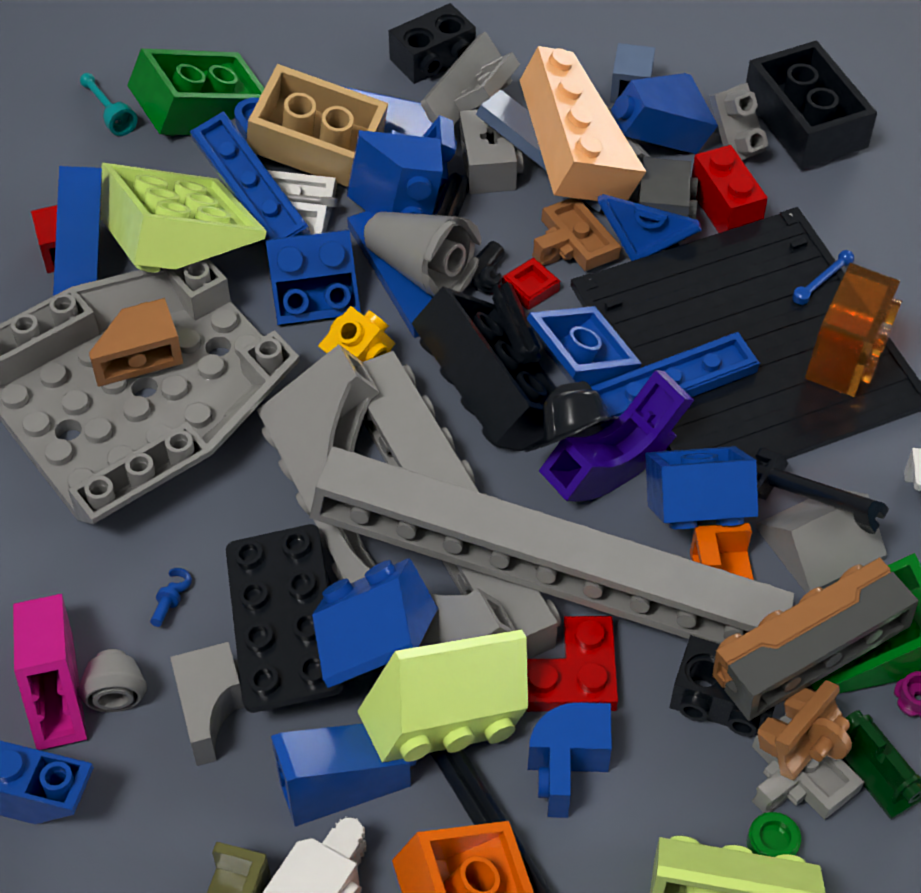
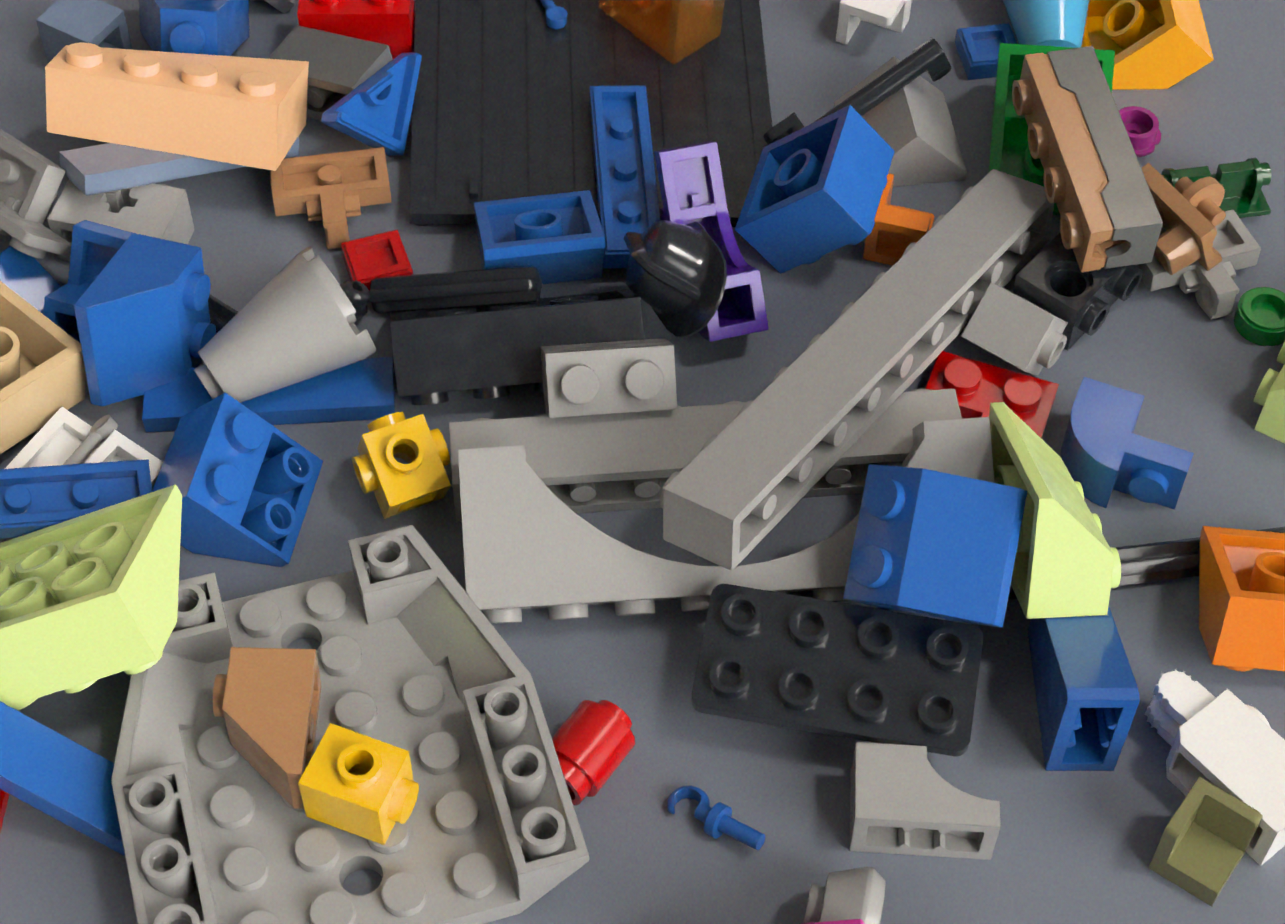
camera: 70 degrees left, 0 degrees up
(106, 395) = (358, 784): none -> yellow brick
(187, 508) = (592, 746): none -> red brick
(464, 417) = (608, 377): none -> light grey brick
(645, 653) = (1016, 330): none -> light grey brick

